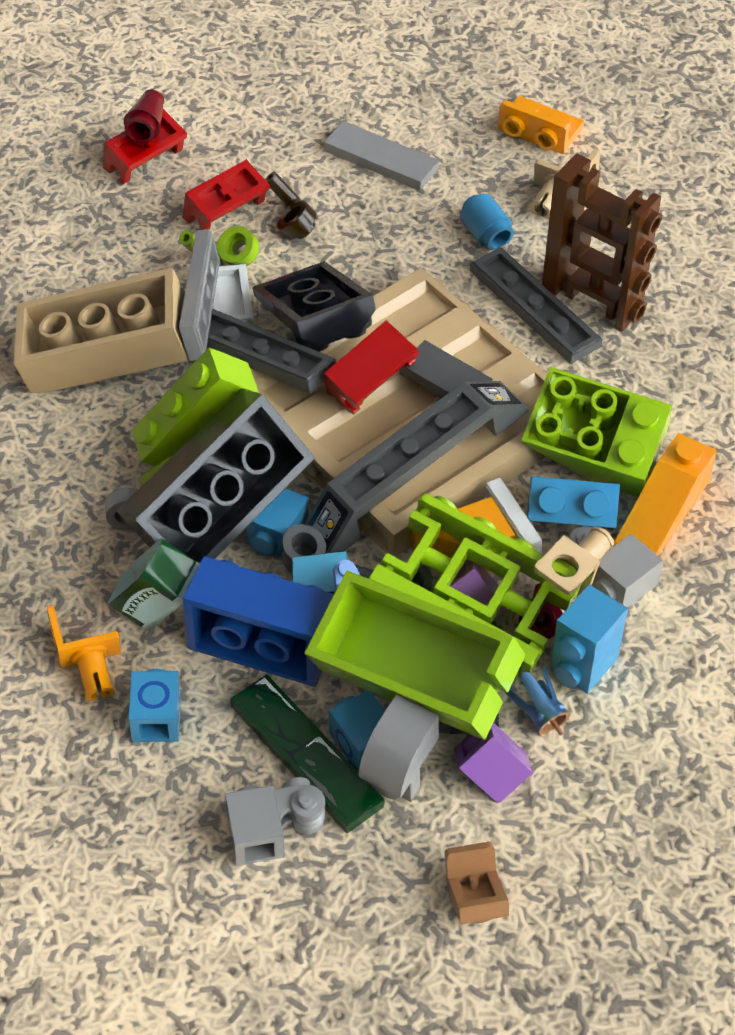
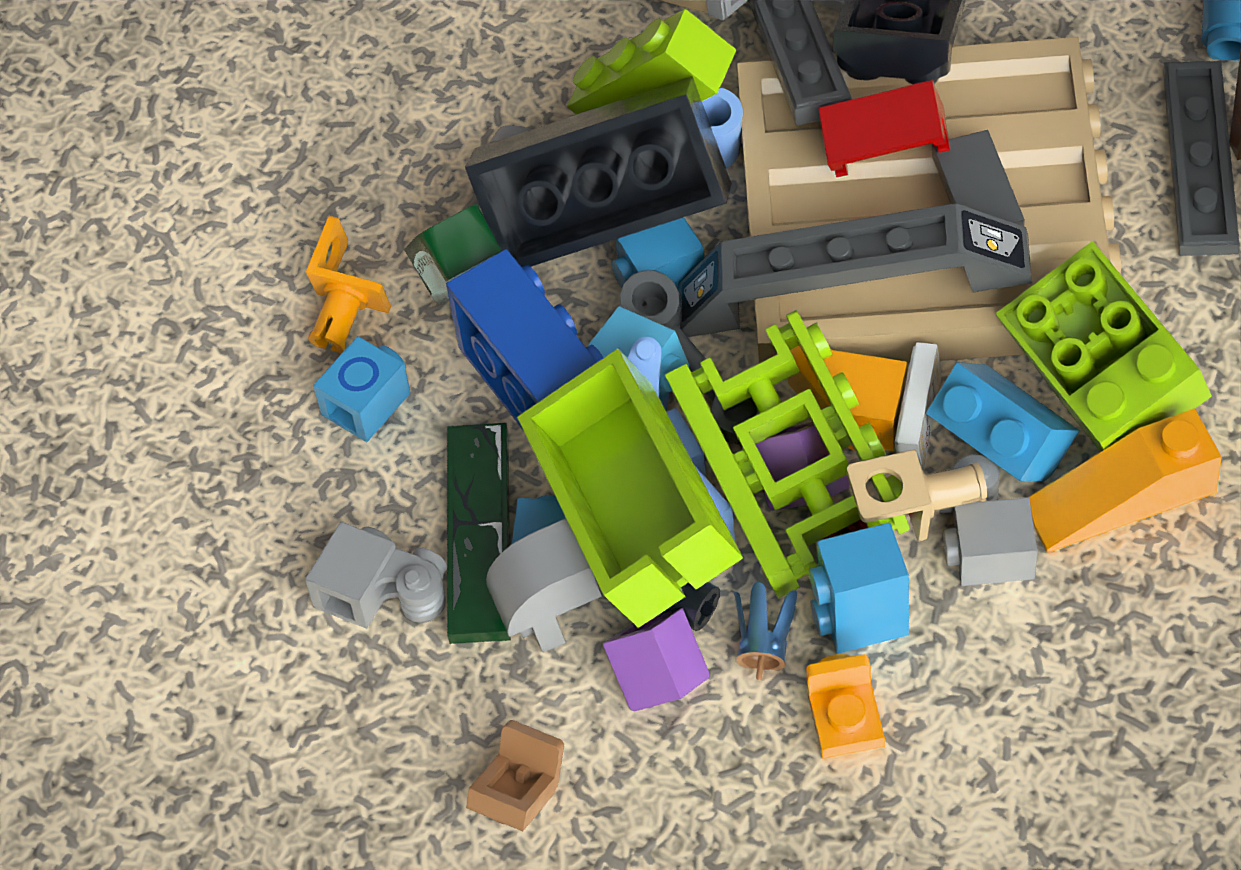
camera: 45 degrees right, 5 degrees up
(624, 719) = (844, 705): none -> light orange bracket

